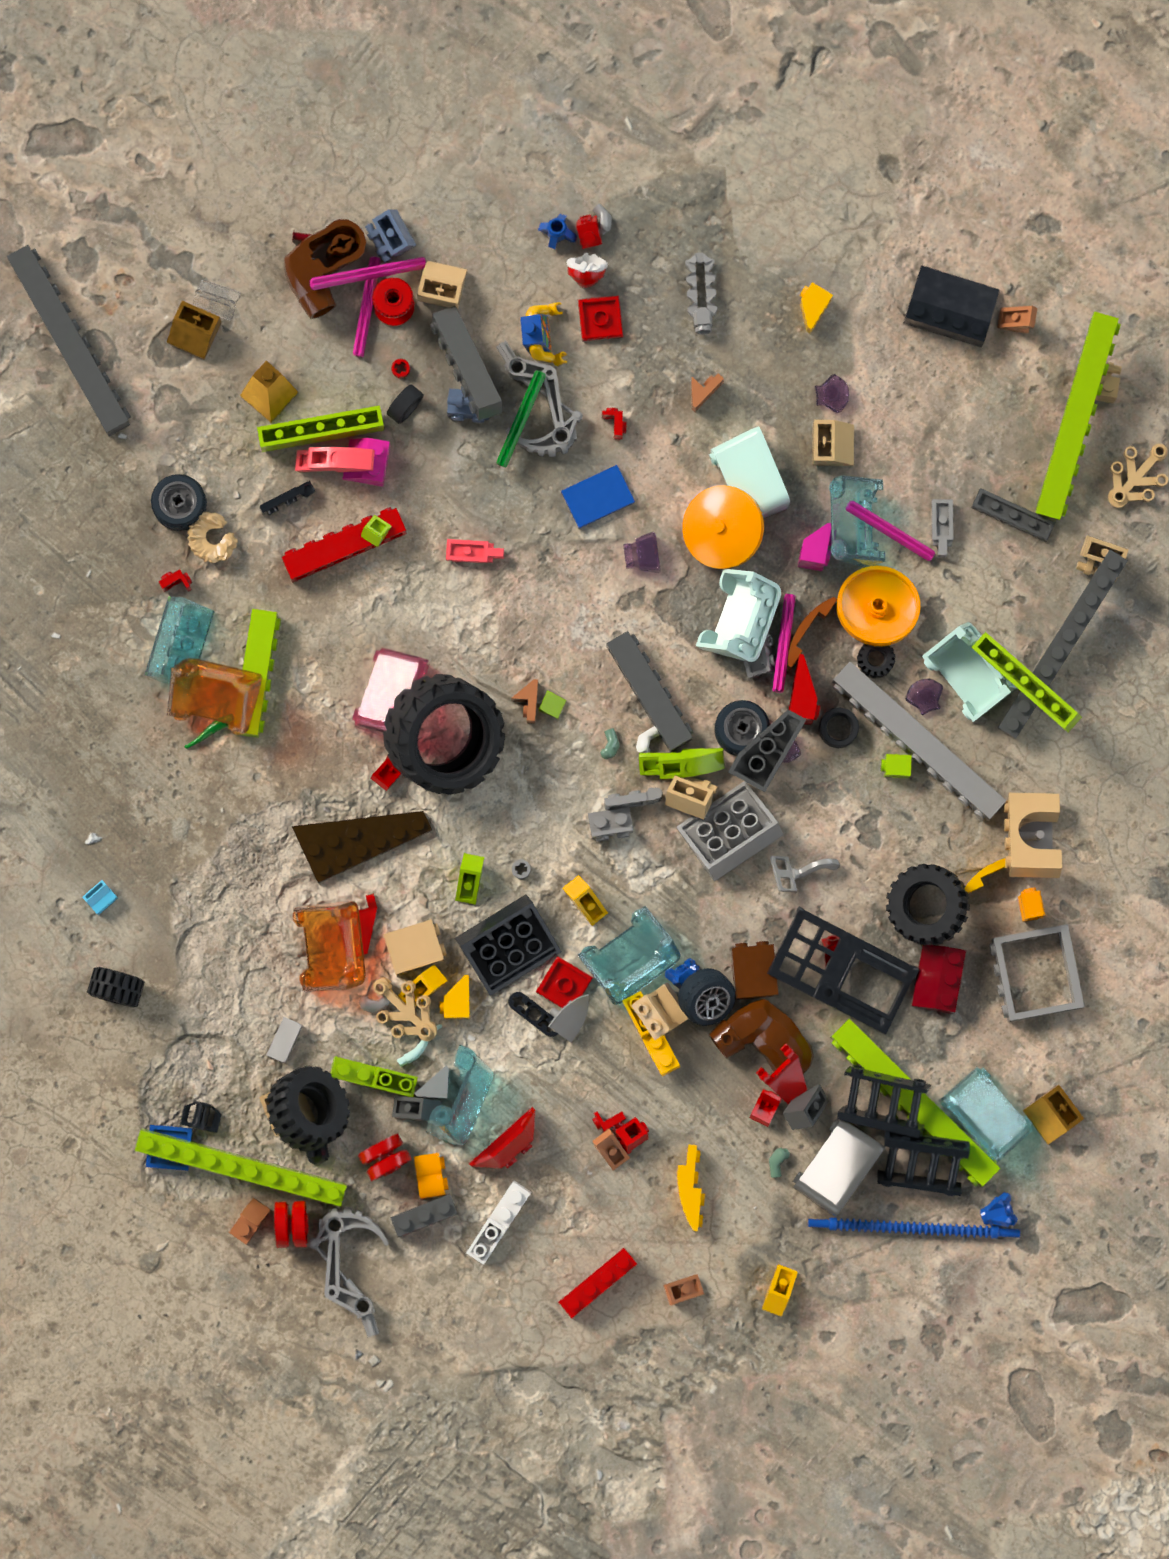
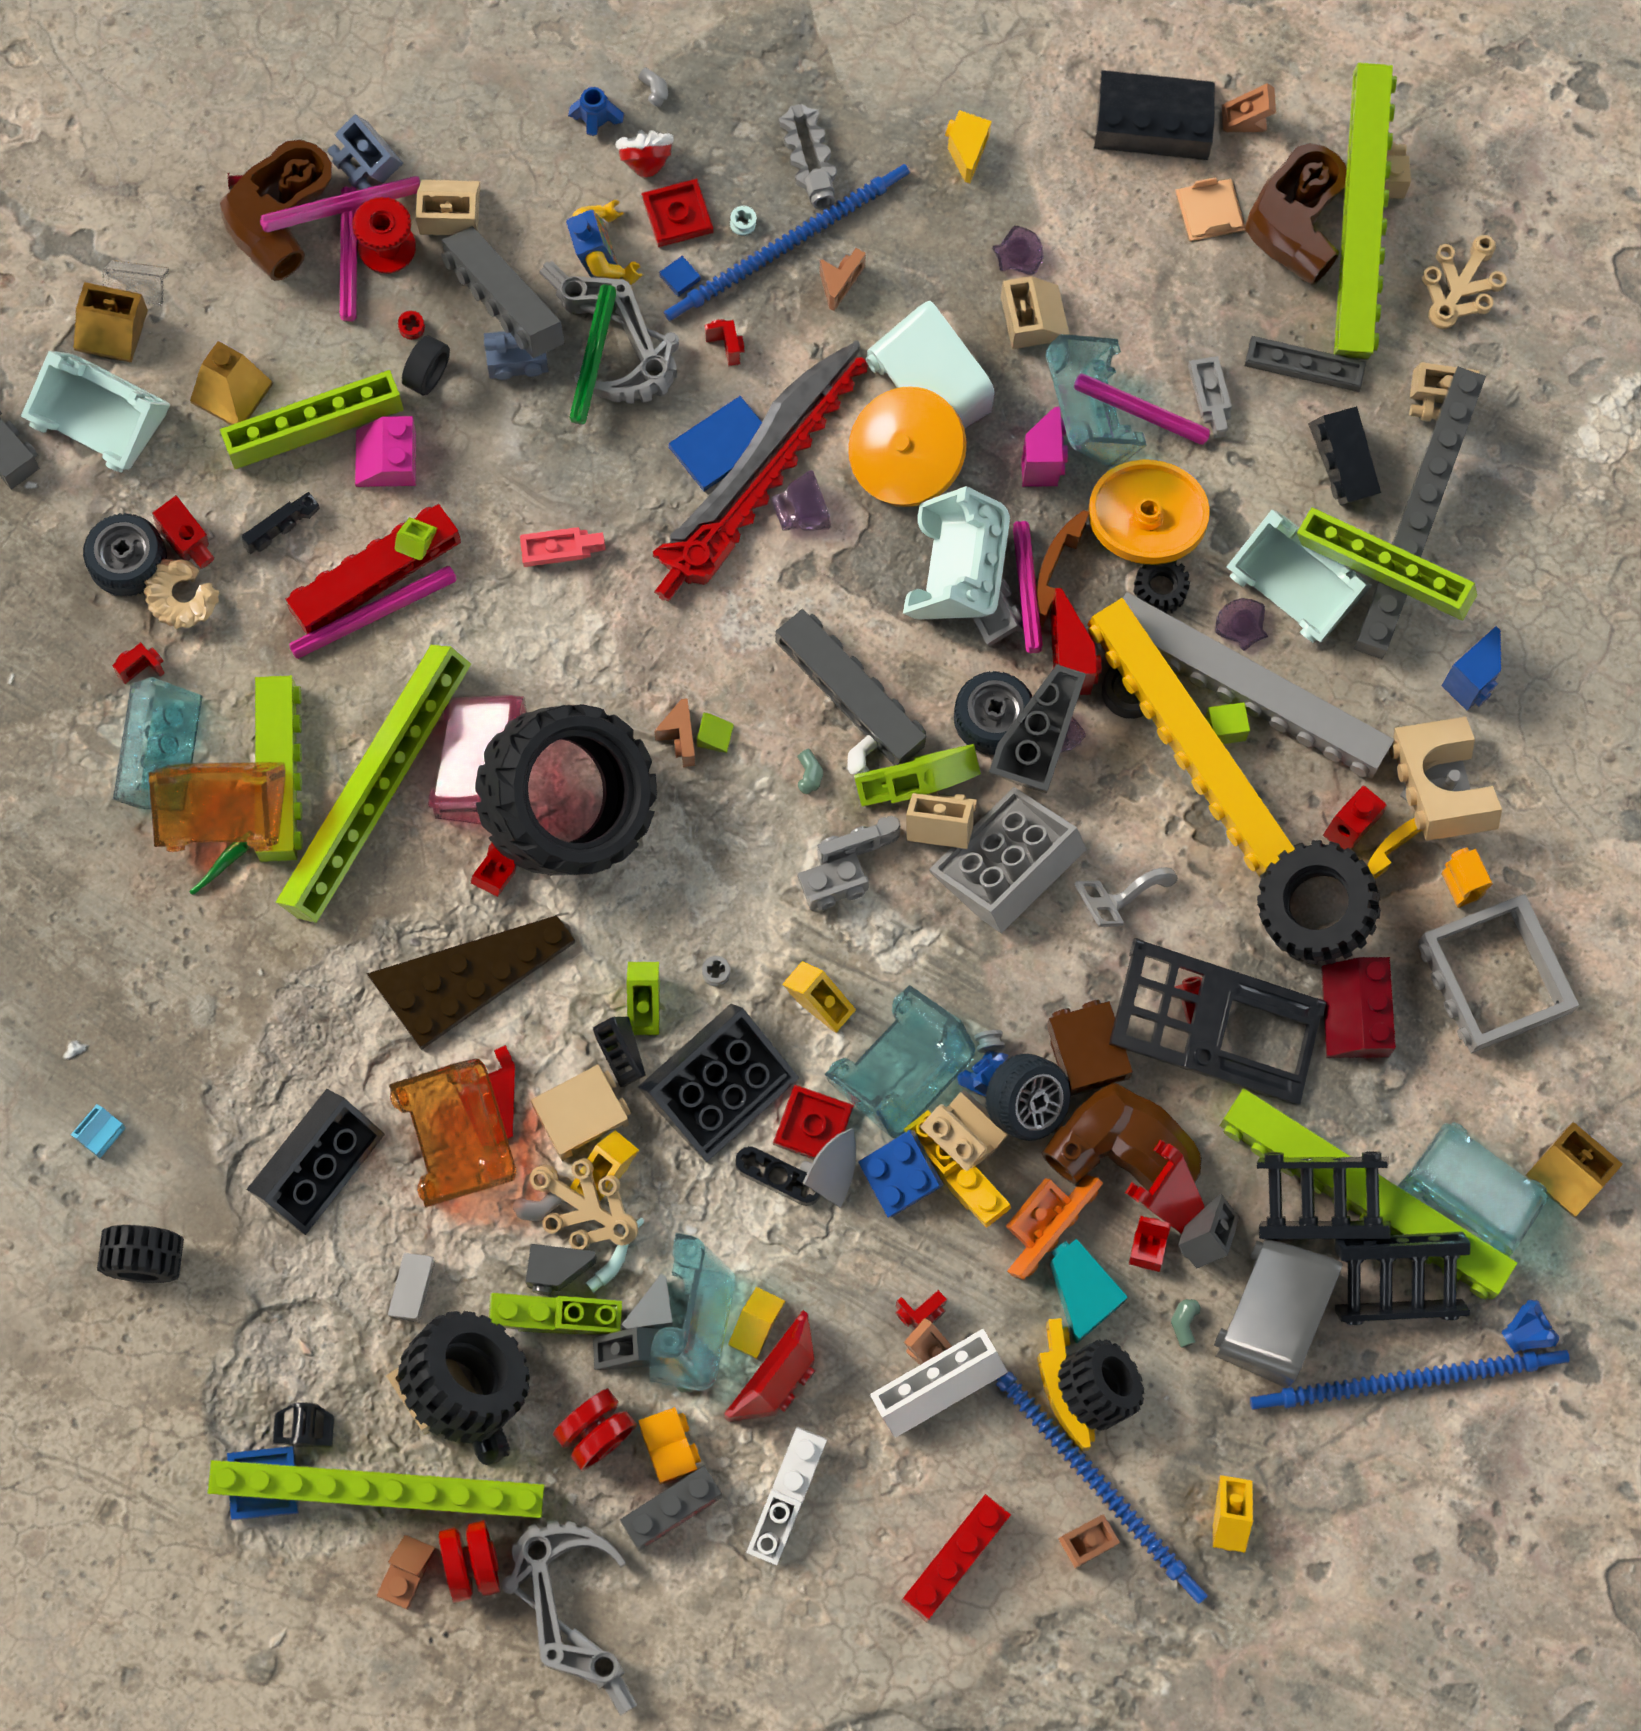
camera: 10 degrees left, 10 degrees down
(175, 391) = (94, 408): none -> light aqua windscreen
(216, 487) = (176, 525): none -> red torso
(237, 946) = (316, 1161): none -> black slope
(319, 696) = (373, 783): none -> lime brick
(334, 459) = (337, 451): coral slope -> none
(338, 574) = (372, 612): none -> dark pink axle
(378, 1046) = (556, 1267): none -> dark grey slope
(447, 903) = (608, 1035): none -> black slope
(457, 1001) = (659, 1178): yellow slope -> none
(501, 1107) = (756, 1322): none -> yellow slope
(576, 570) = (701, 543): none -> piece
(588, 231) = (638, 104): red bracket -> none
(592, 367) = (680, 276): none -> blue tile
(609, 1171) = (938, 1383): none -> white brick
(614, 1029) = (900, 1173): none -> blue plate
(632, 1127) = (960, 1313): red brick -> none
(649, 328) = (748, 214): none -> light aqua bush
(691, 952) = (989, 1041): none -> light grey bush
(701, 1078) = (1045, 1219): none -> orange bracket
(712, 1193) = (1101, 1385): none -> black tyre
(717, 1128) = (1084, 1289): none -> teal slope
(735, 1317) = (1174, 1568): none -> blue hose
(744, 325) = (696, 298): none -> blue hose
(869, 772) = (1189, 736): none -> yellow brick
(967, 850) = (1357, 816): none -> red torso
(974, 386) = (1210, 209): none -> light nougat piece
(1023, 590) = (1345, 455): none -> black wedge
(1029, 399) = (1290, 206): none -> reddish brown piece
(1073, 764) = (1475, 673): none -> blue slope

